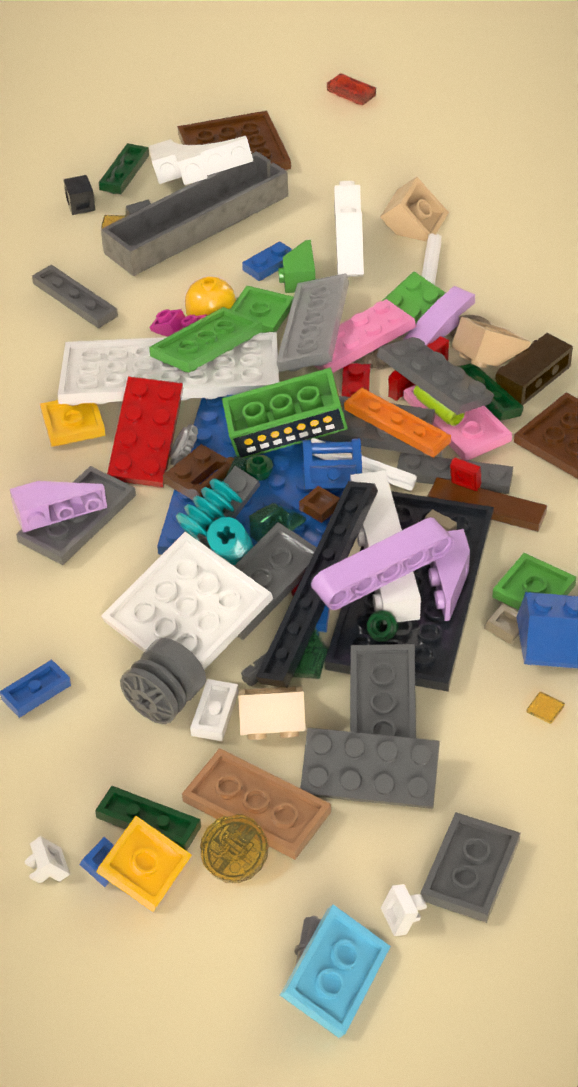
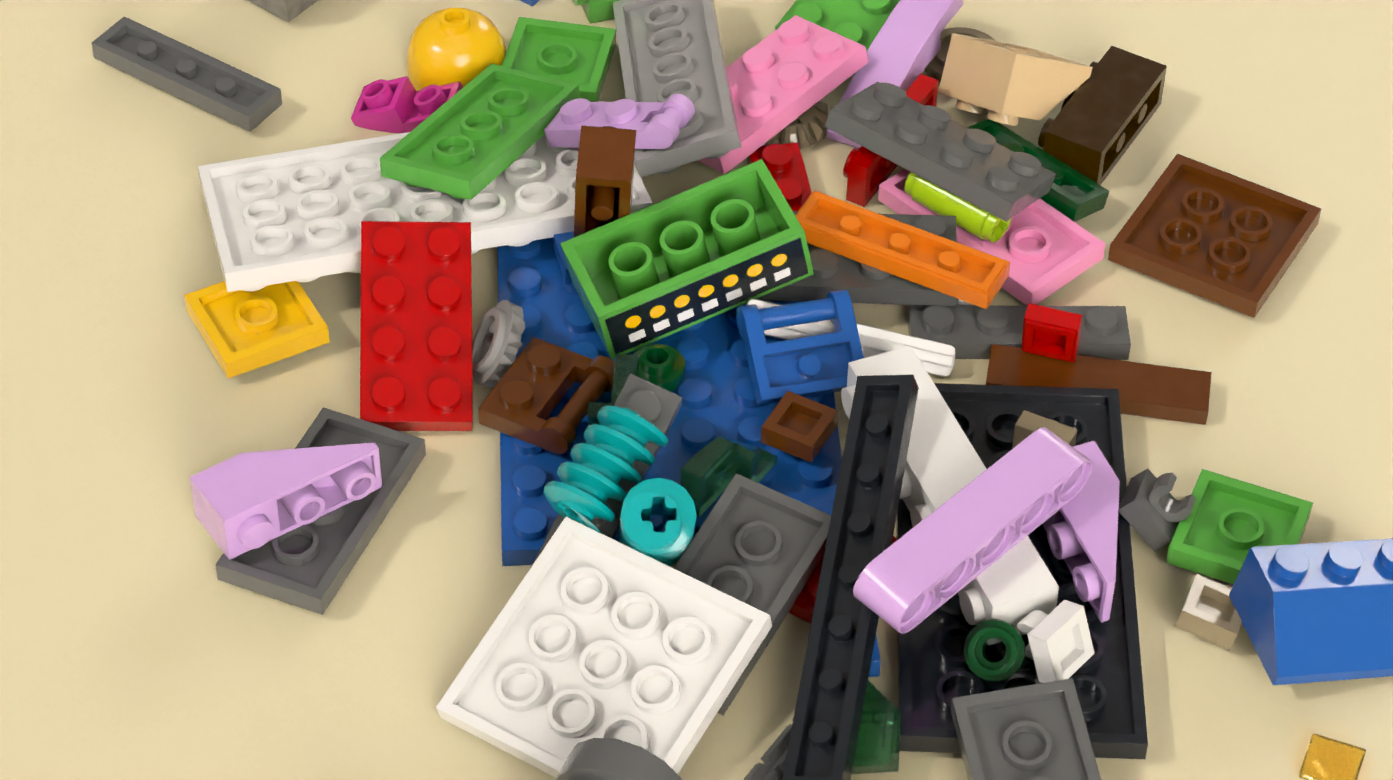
camera: 15 degrees left, 0 degrees up
(249, 367) = (603, 176): none -> reddish brown brick
(274, 343) = (655, 122): none -> lavender plate
(415, 625) = (1057, 641): none -> white tile
(491, 568) = (1153, 509): none -> dark grey tile

